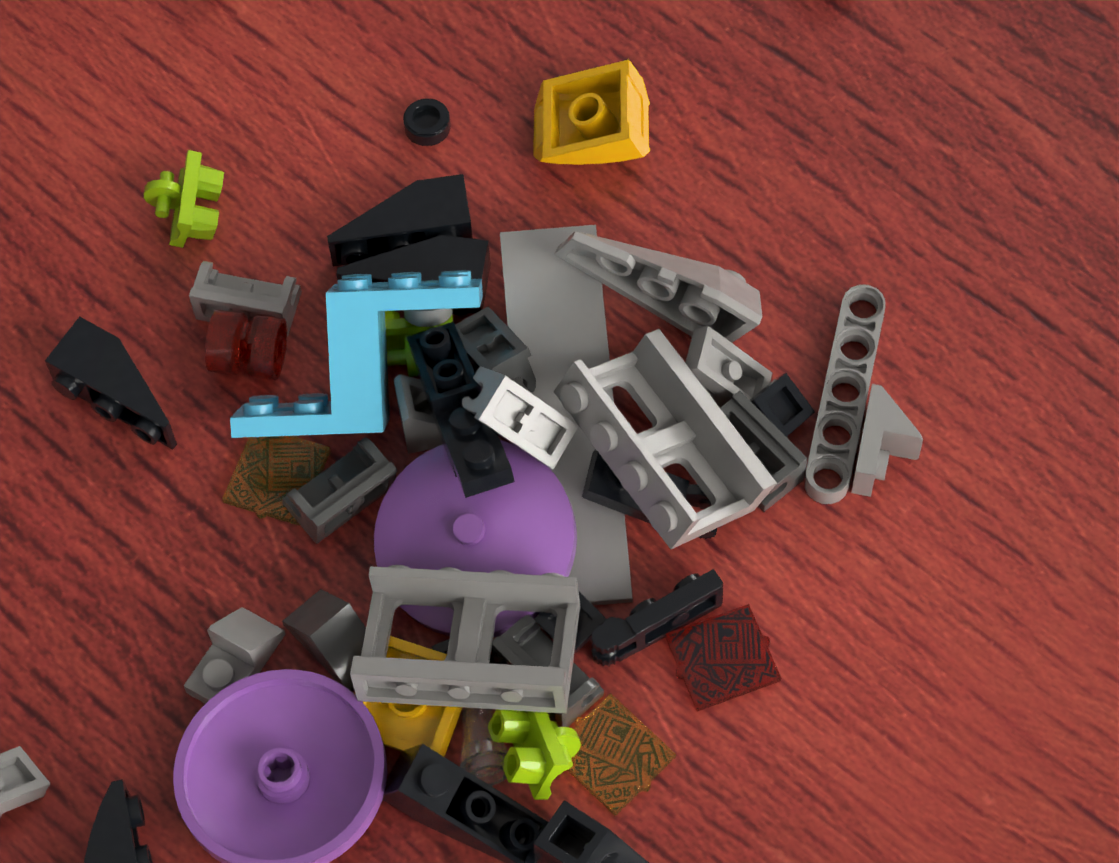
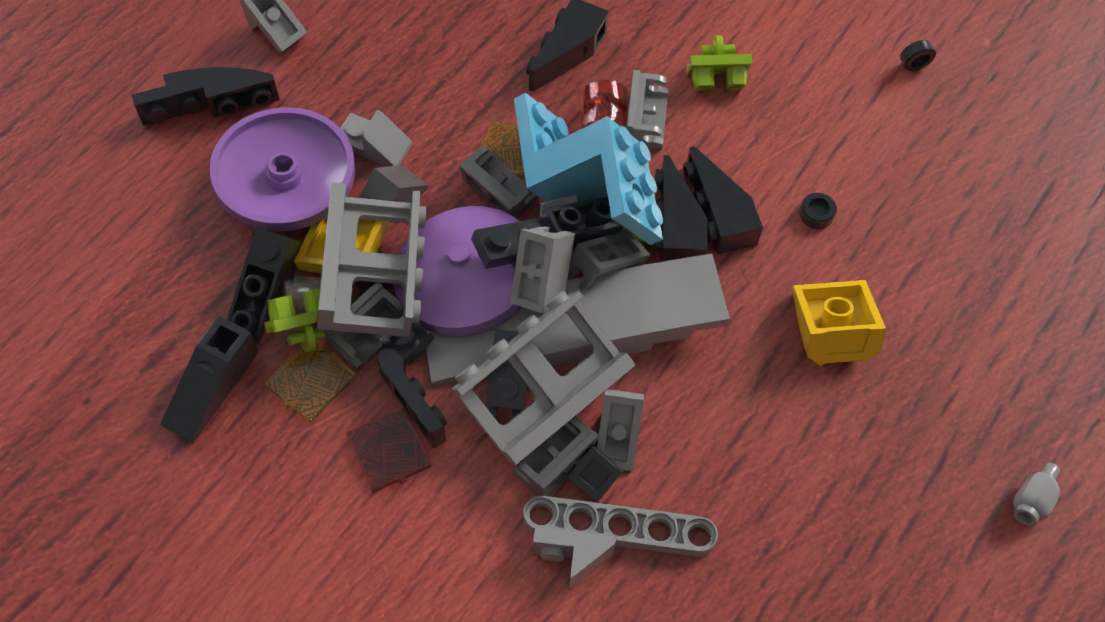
camera: 80 degrees right, 0 degrees up
(670, 286) = (679, 396): light grey wedge -> none

